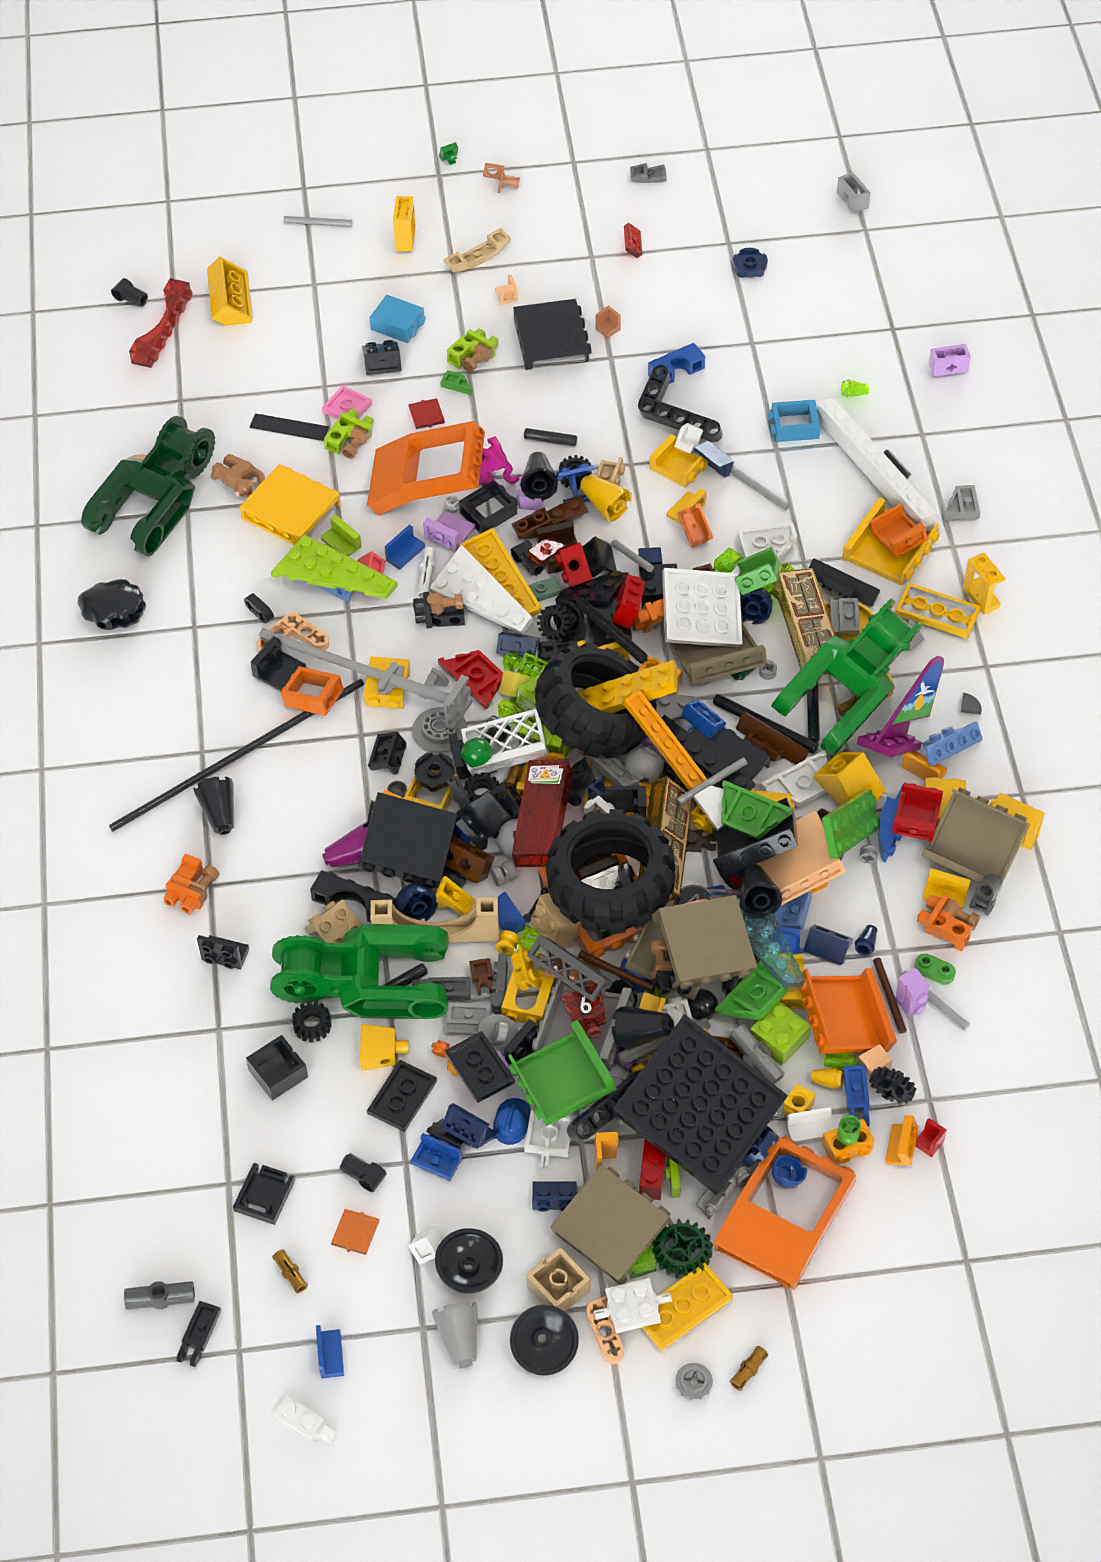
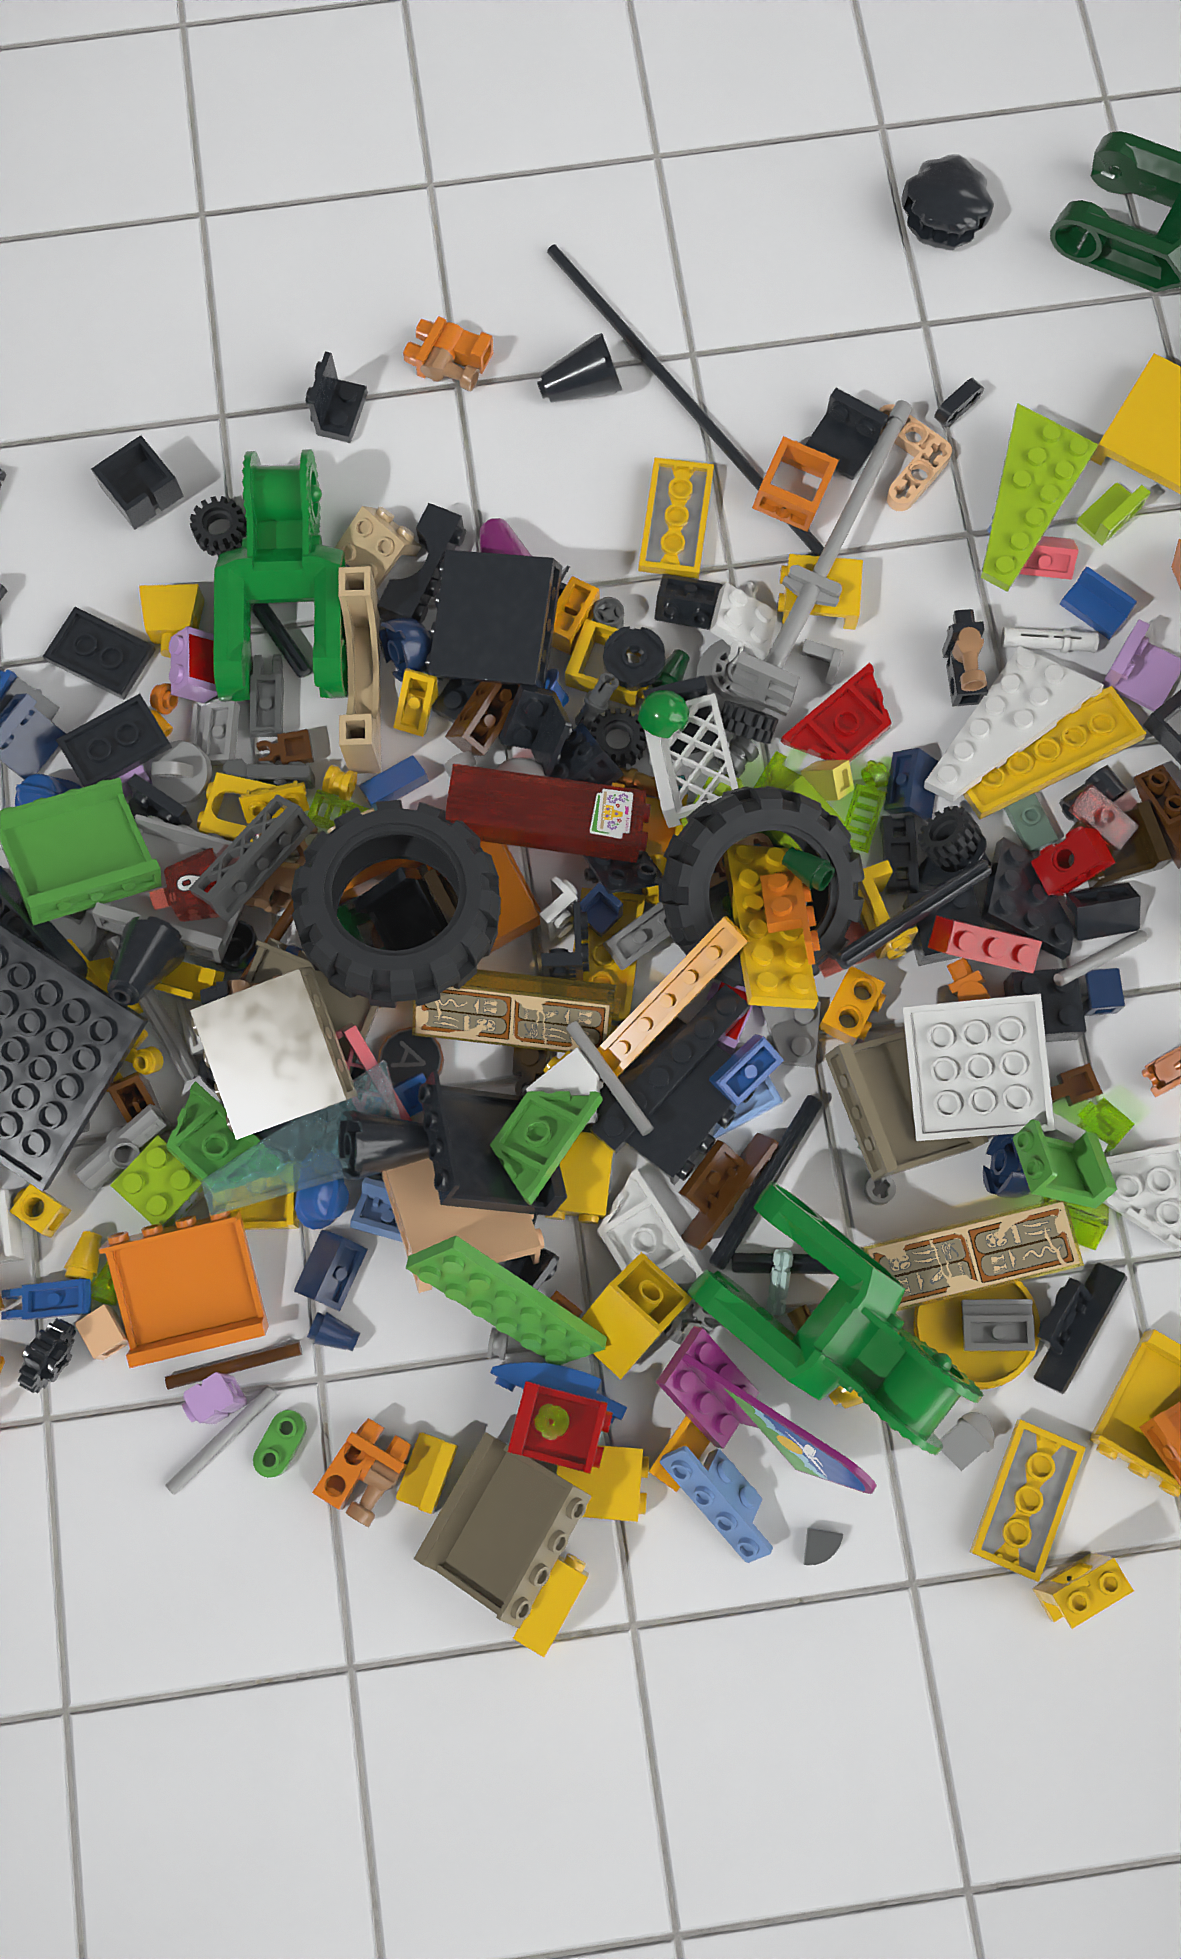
camera: 90 degrees right, 20 degrees up
(327, 758) = (676, 518): none -> yellow piece
(409, 718) = (743, 621): none -> white plate
(420, 1026) = (192, 665): none -> lavender brick
(479, 714) = (748, 722): none -> black tyre
(591, 664) = (810, 869): none -> dark green cone
(611, 678) = (786, 908): none -> orange bracket
(644, 762) = (651, 967): light grey cylinder -> none
(823, 714) = (779, 1282): none -> light aqua axle
(915, 812) = (559, 1417): none -> clear neon green plate
(984, 897) = (406, 1539): dark grey piece -> none

